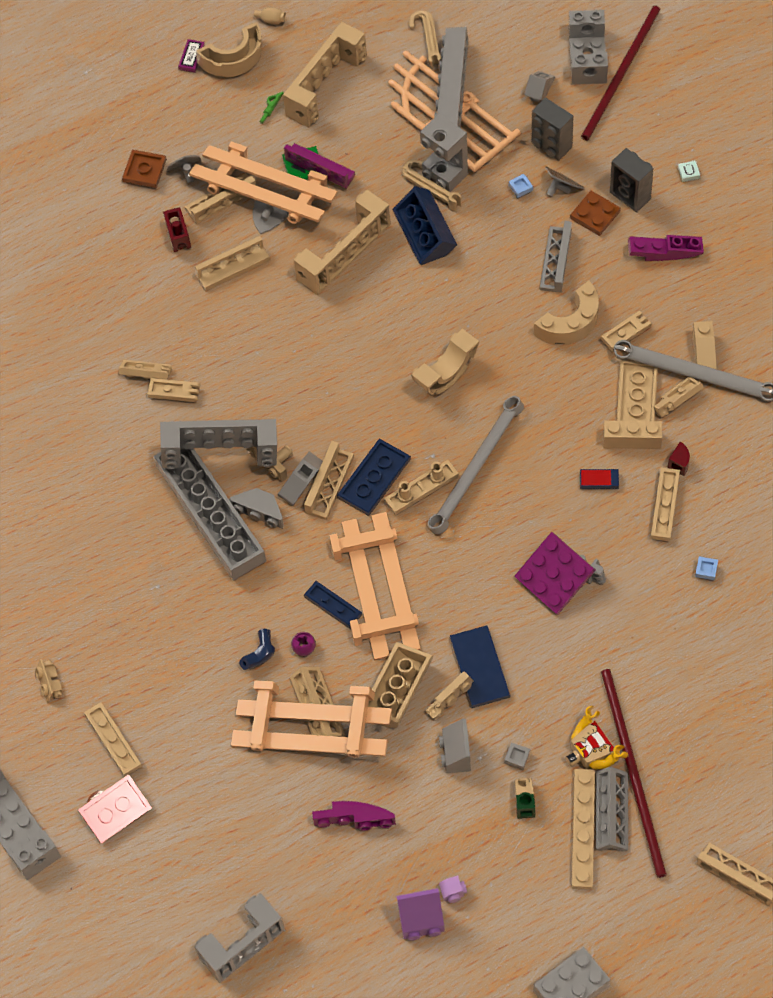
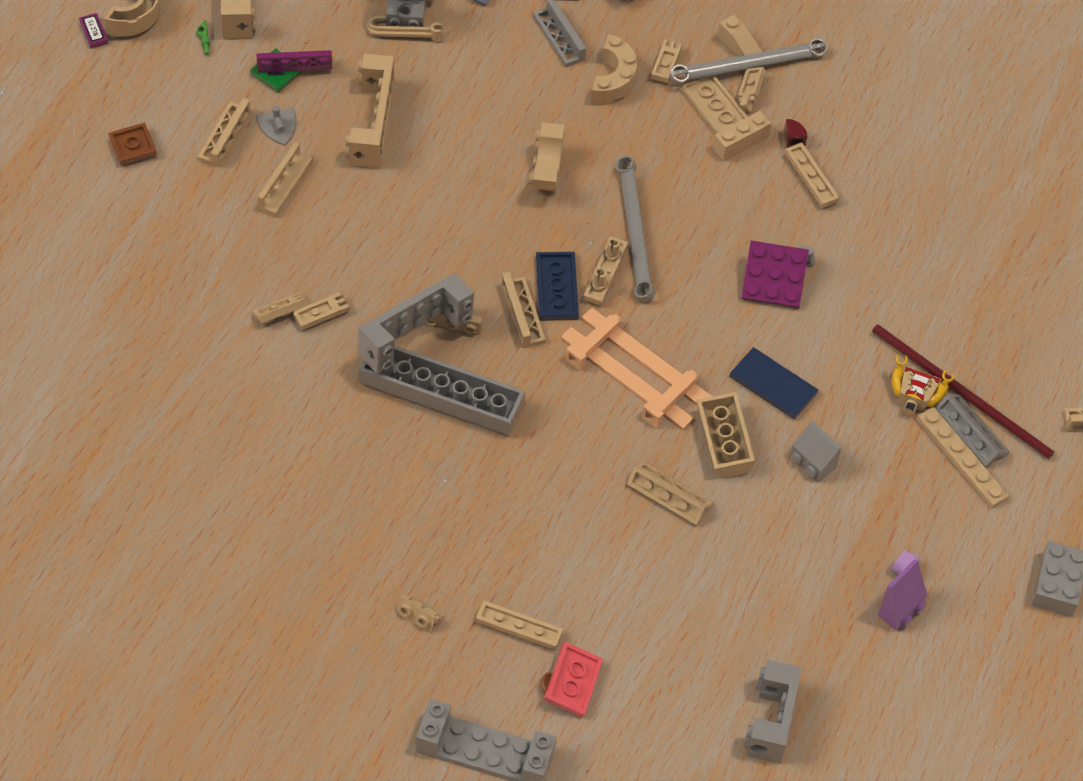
camera: 45 degrees left, 5 degrees down
(177, 230) = (211, 176): dark red brick -> none
(185, 162) = (173, 123): light grey shield -> none
(238, 159) = (302, 79): light nougat fence -> none
(258, 506) = (486, 360): light grey slope -> none
(261, 654) = (588, 477): dark blue arm -> none
(300, 478) = (499, 319): light grey slope -> none
(303, 637) = (619, 444): magenta piece -> none
(332, 604) = (611, 405): dark blue tile -> none
(356, 715) = (633, 519): light nougat fence -> none
(362, 814) = (781, 554): magenta slope -> none
(424, 225) = (428, 64): dark blue slope -> none
(449, 695) = (773, 420): tan hinge -> none
(517, 756) = (865, 432): light grey plate -> none
(525, 798) = (900, 460): dark green leg -> none
(599, 478) = (742, 185): tile -> none
(706, 568) = (885, 205): light blue plate -> none

